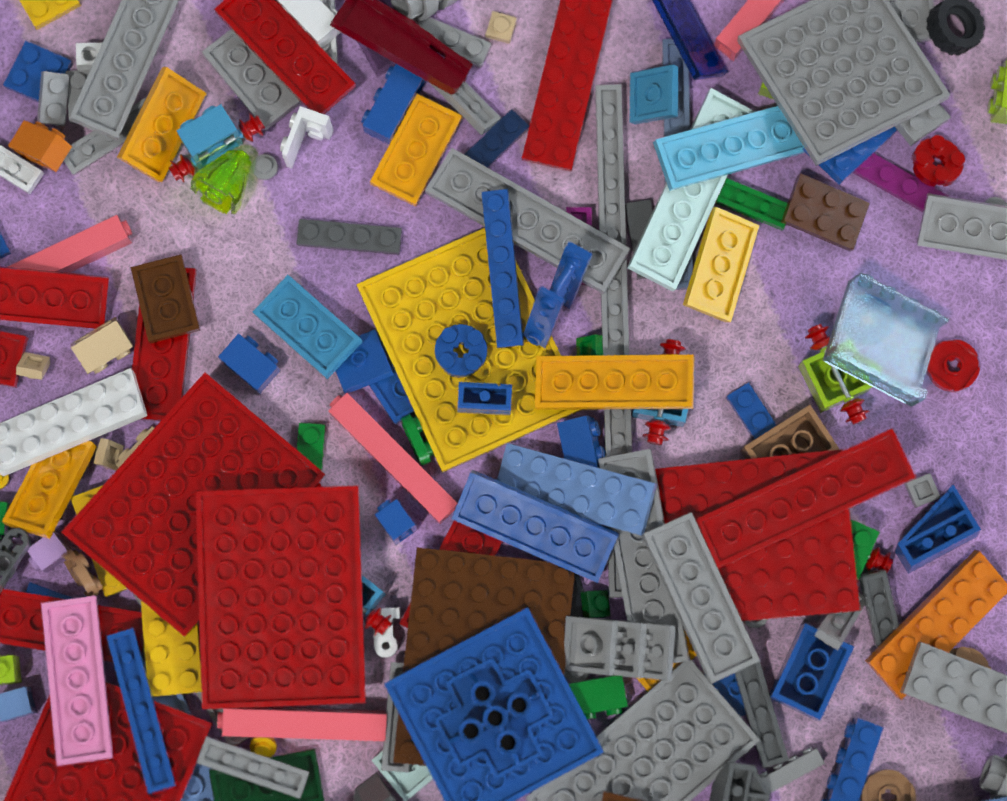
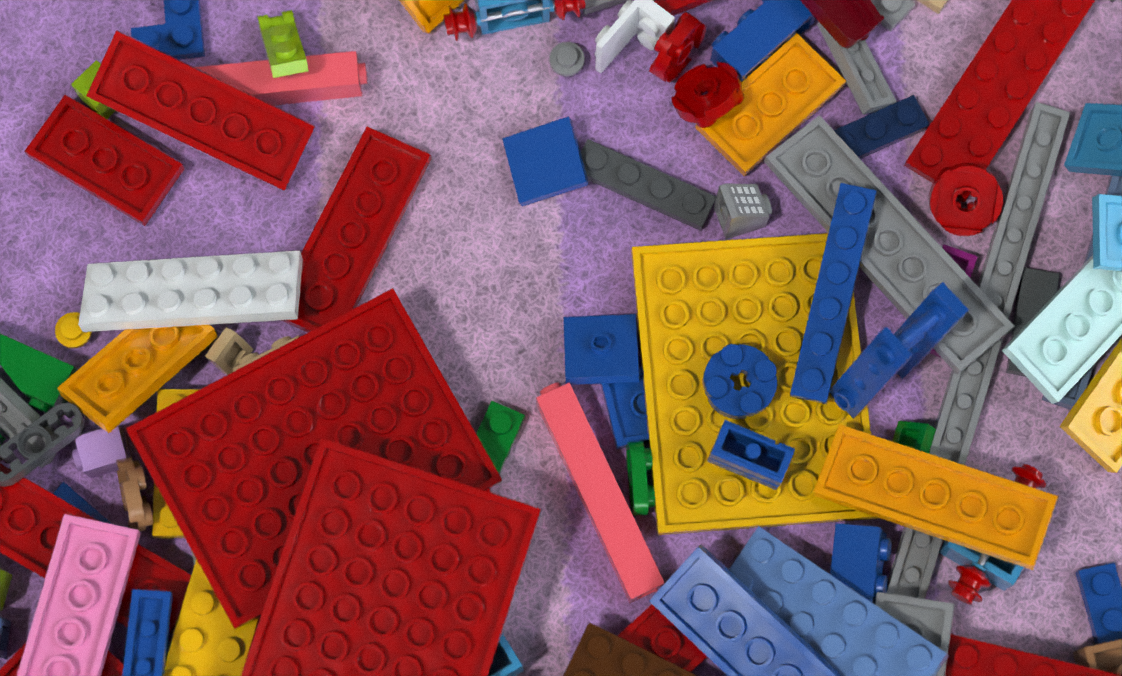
camera: 20 degrees right, 5 degrees down
(33, 366) = (176, 205): tan plate -> none
(64, 228) = (282, 44): none -> lime plate
(102, 346) = (273, 210): tan brick -> none
(165, 298) = (377, 178): reddish brown plate -> none
(224, 181) = (507, 57): clear neon green cone -> none
(249, 363) = (455, 299): blue brick -> none
(276, 245) = (545, 161): none -> blue tile
(307, 326) = (548, 279): dark azure plate -> none
(337, 136) = (676, 47): none -> red plate
(373, 170) = (723, 95): none -> red plate
(395, 521) = (572, 576): blue brick -> none
(421, 231) = (741, 209): none -> light grey slope
(581, 179) = (978, 214): none -> red plate

